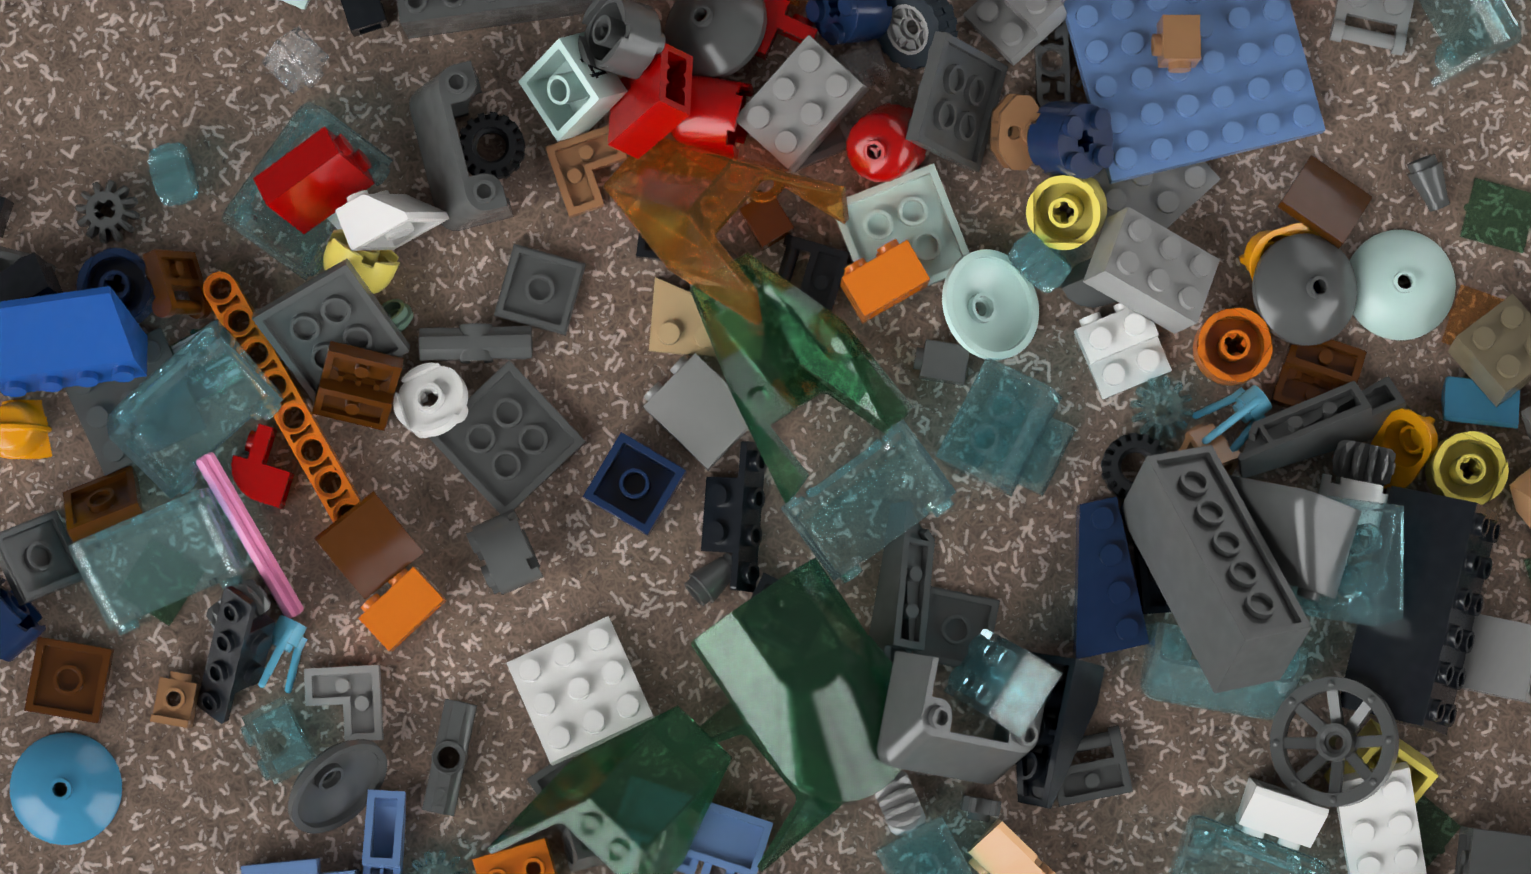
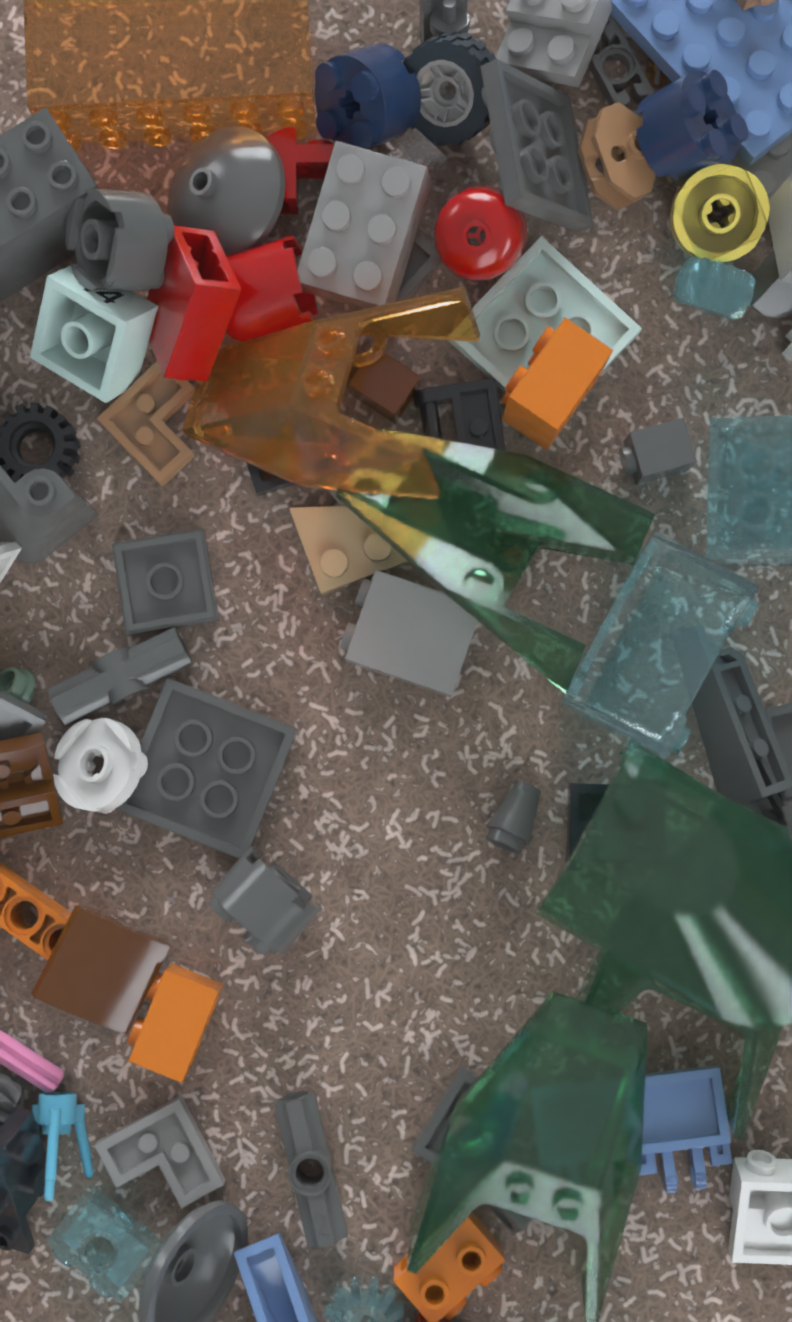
camera: 25 degrees left, 0 degrees up
(580, 690) = (425, 1019): white plate -> none
(634, 484) = (376, 752): dark blue brick -> none
(734, 517) = (505, 735): black bracket -> none
(1004, 302) = (682, 361): light aqua dish -> none

